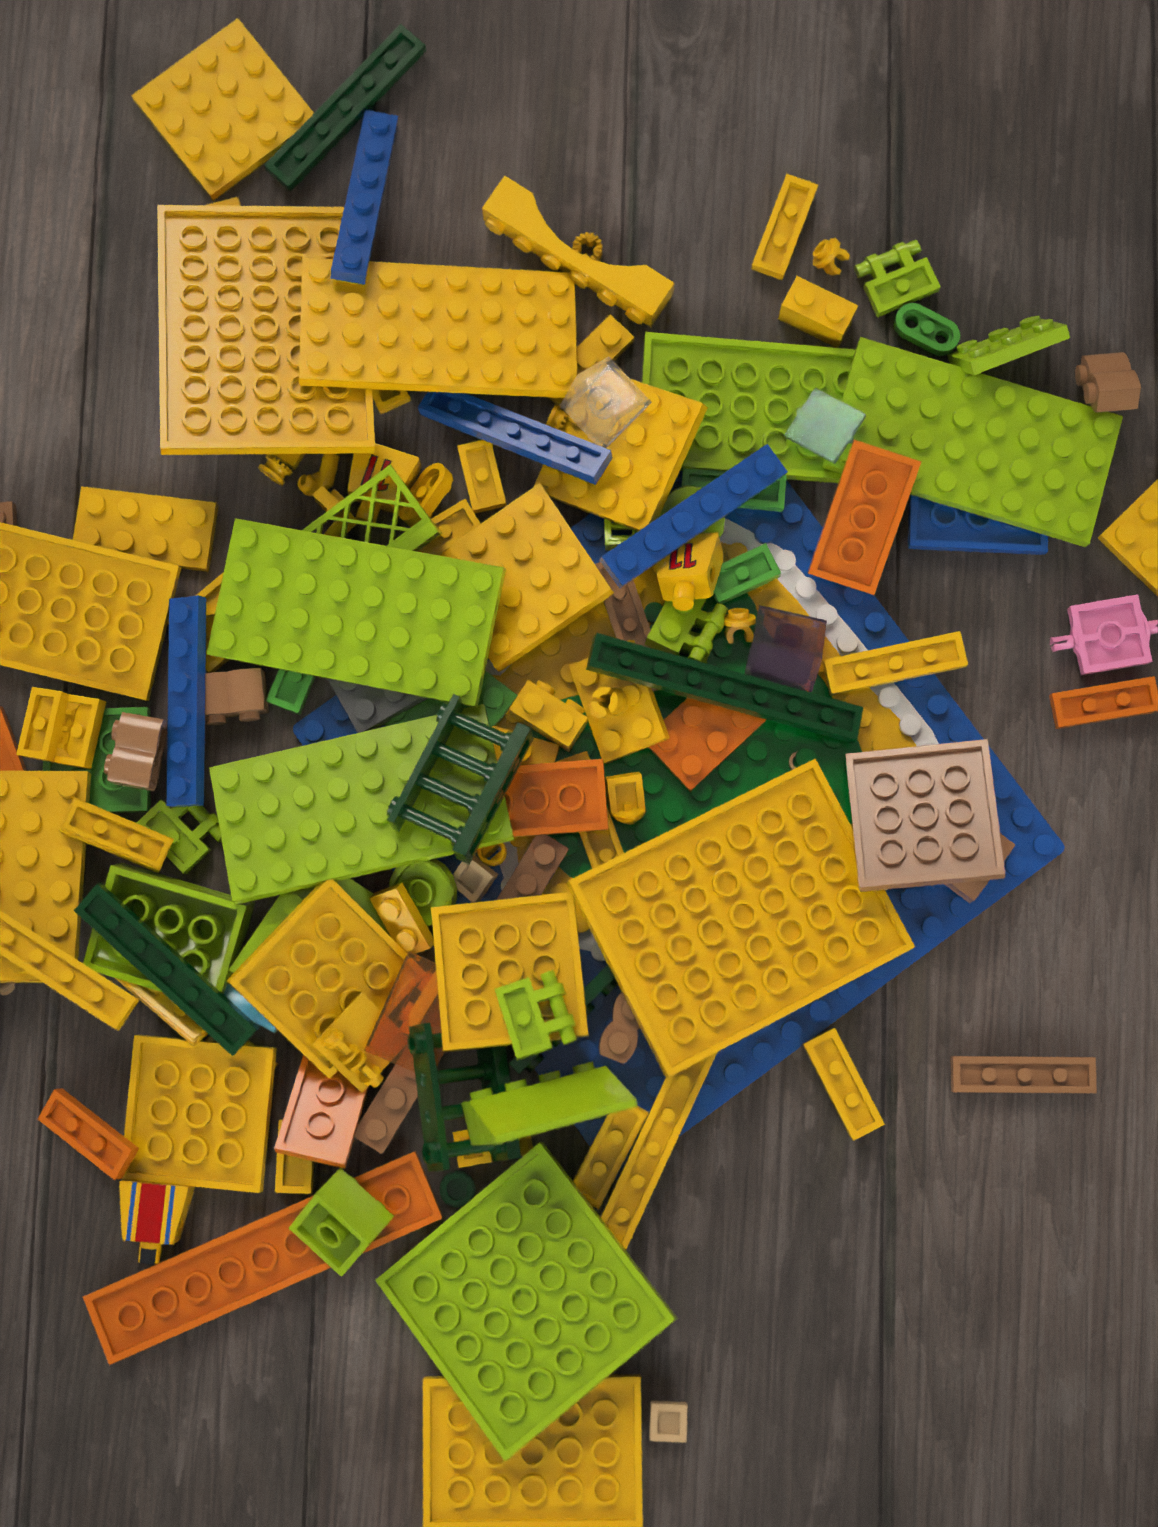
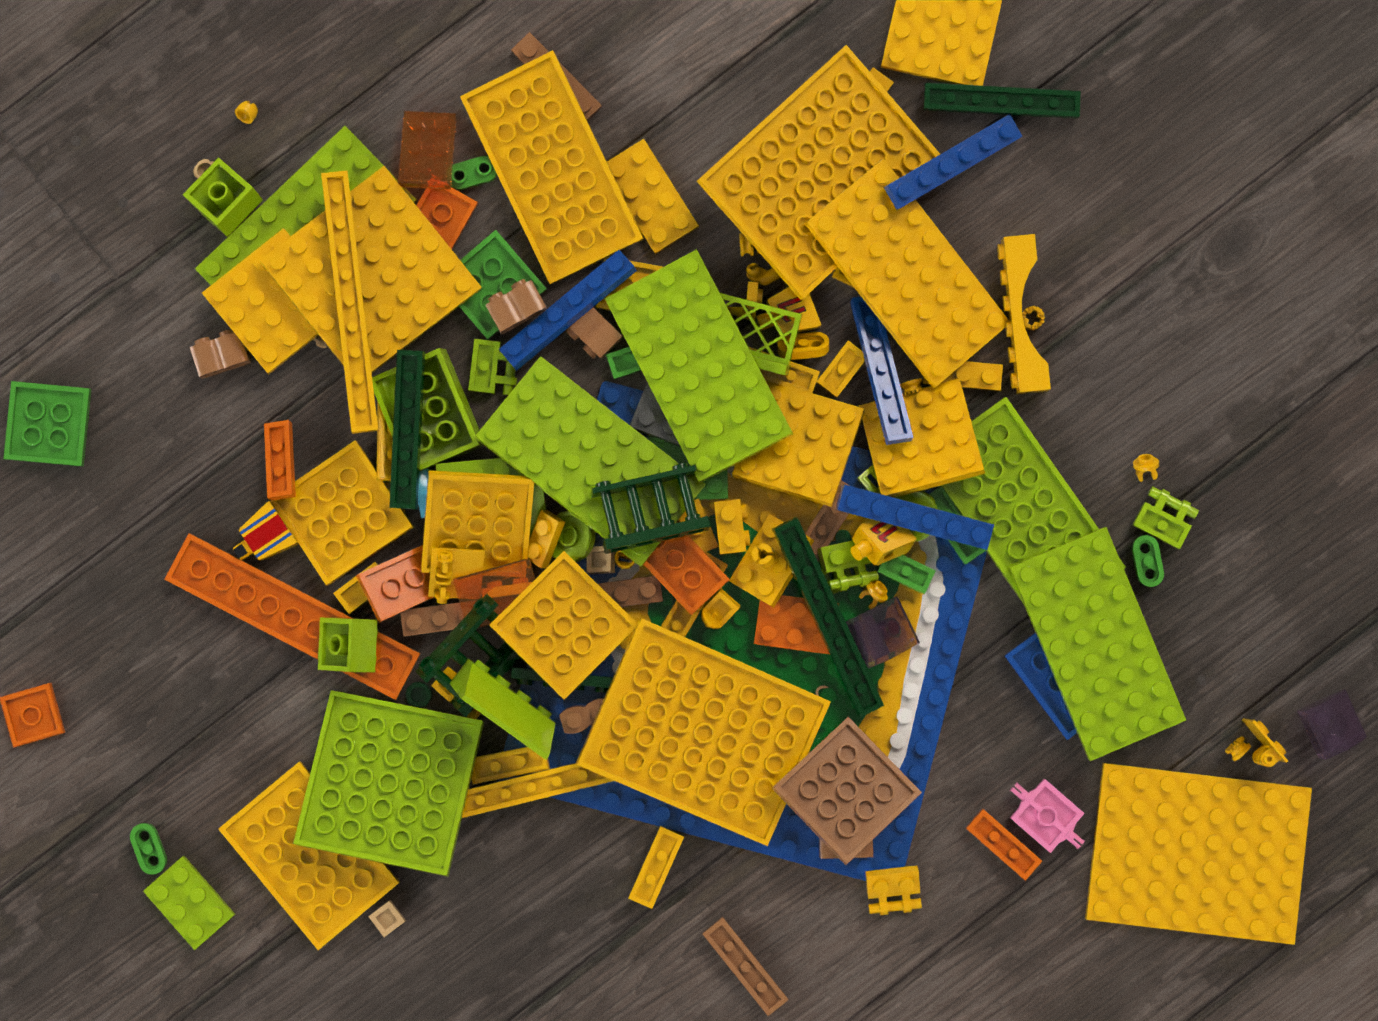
camera: 45 degrees right, 5 degrees up
(61, 728) = (493, 250): yellow slope -> none
(116, 835) = (458, 335): yellow tile -> none
(524, 1018) = (543, 657): lime plate -> none
(604, 402) = (941, 408): clear slope -> none
(784, 227) = (1142, 425): yellow plate -> none
(817, 312) = (1104, 487): yellow brick -> none
(825, 425) = (1033, 549): clear light blue piece -> none
(864, 517) = (996, 616): orange plate -> none
(895, 663) = (925, 703): yellow plate -> none
(1008, 344) = (1173, 618): lime plate -> none
(1056, 848) = (893, 882): none -> yellow plate
(1108, 382) = (1199, 695): medium nougat brick -> none

